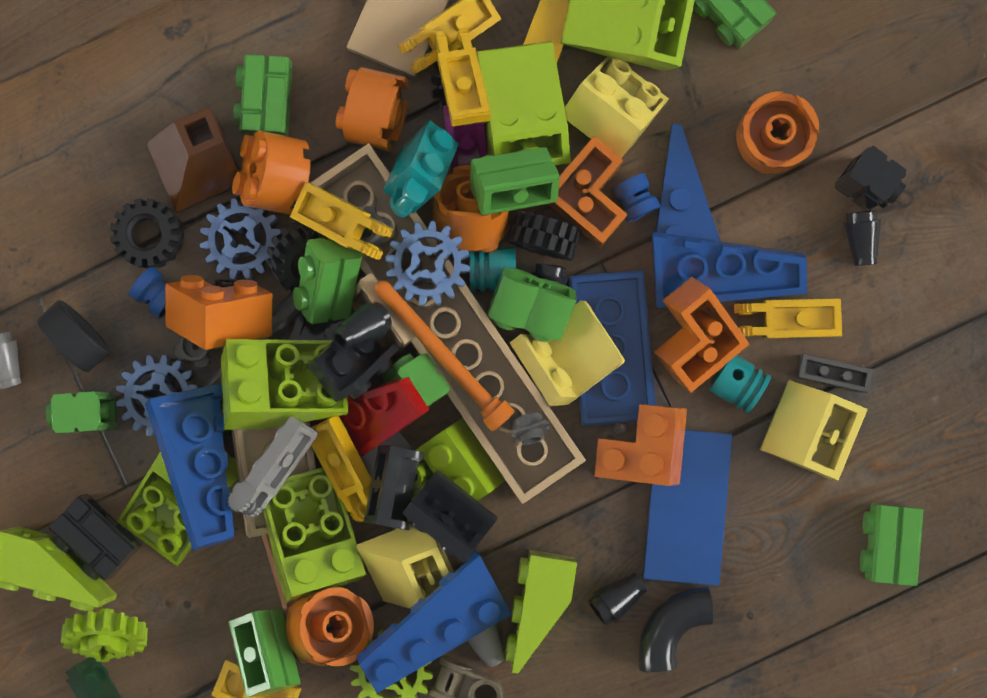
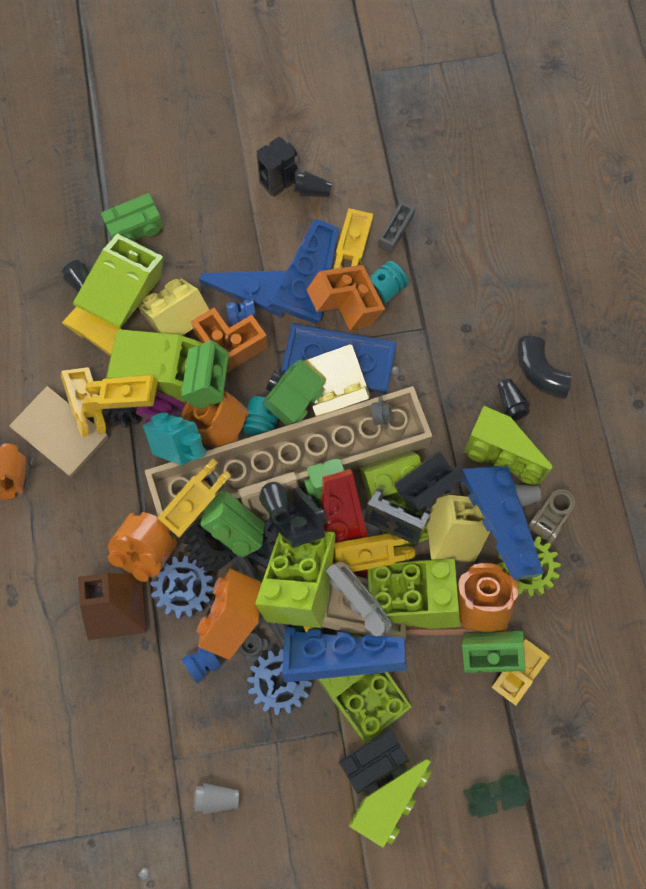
camera: 75 degrees left, 15 degrees down
(73, 336) = (215, 731): black tyre -> none
(82, 412) = (275, 741): bright green brick -> none
(104, 635) = (451, 771): lime gear -> none
(131, 217) = (142, 645): black tyre -> none
(265, 94) = (81, 540): bright green brick -> none
(373, 108) = (121, 462): orange brick -> none
(417, 250) = (235, 453): medium blue gear -> none
(492, 409) = (362, 433): orange piece -> none
(544, 235) = (248, 375): black tyre -> none
(654, 454) = (421, 344): orange brick -> none
(689, 517) = (460, 340): blue tile -> none
(776, 112) = (227, 214): orange brick -> none
(813, 429) = (431, 245): light yellow slope -> none
(892, 544) = (518, 220): bright green brick -> none

